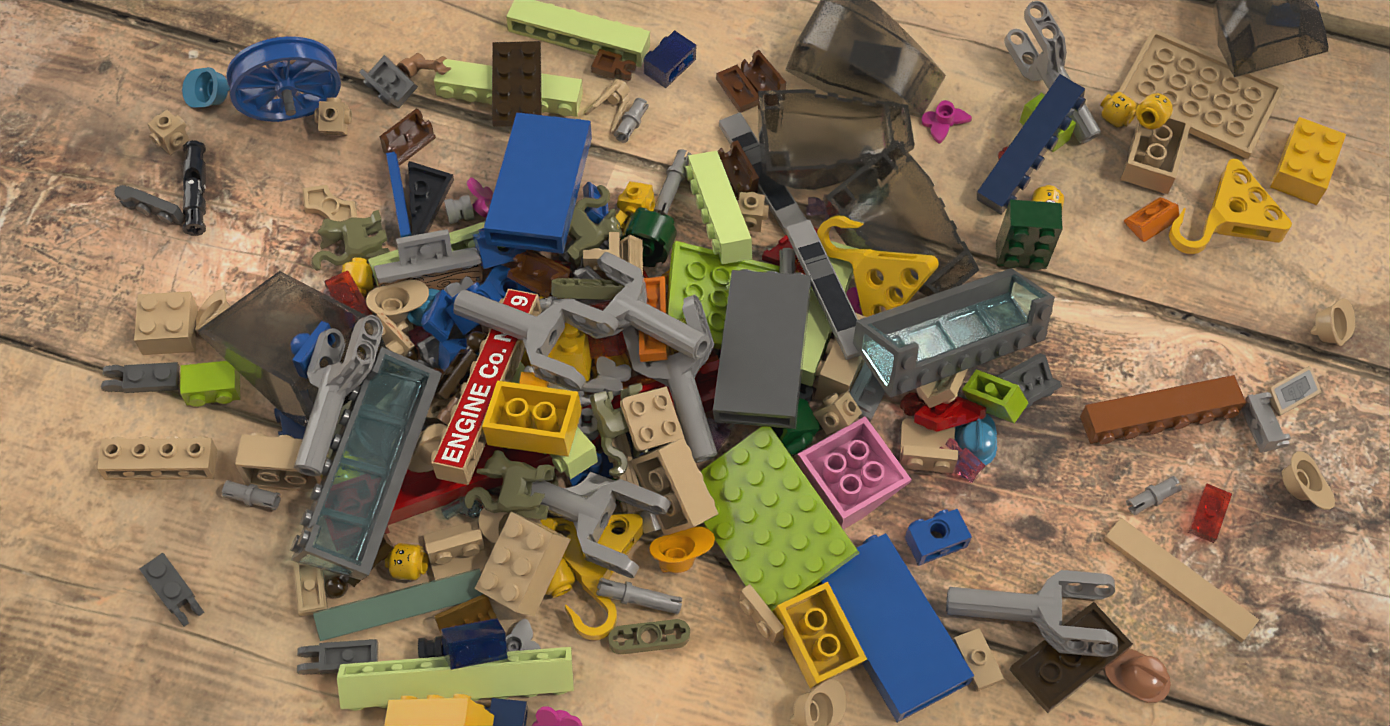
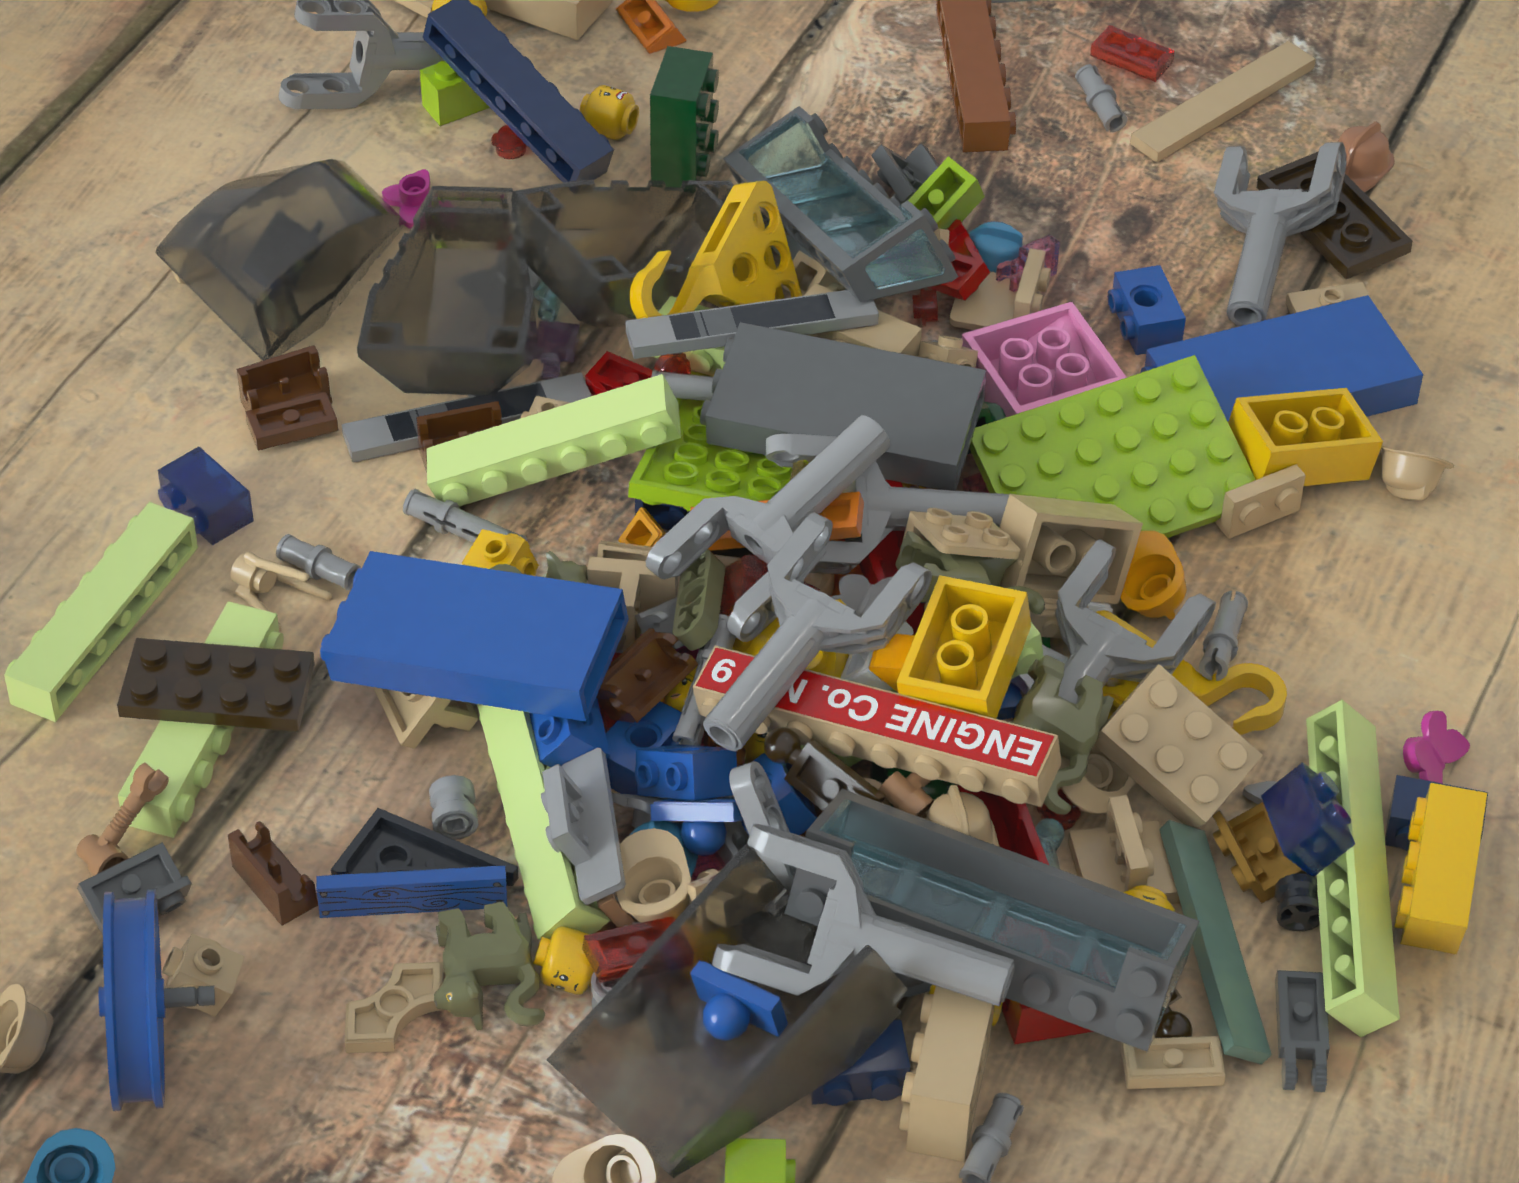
camera: 80 degrees left, 15 degrees down
(429, 335) = (760, 806): none -> light grey beam
(484, 197) = (453, 764): dark pink animal -> none
(610, 64) = (191, 579): reddish brown plate -> none
(655, 232) = (576, 534): dark green brick -> none
(670, 643) = (1288, 629): olive beam -> none

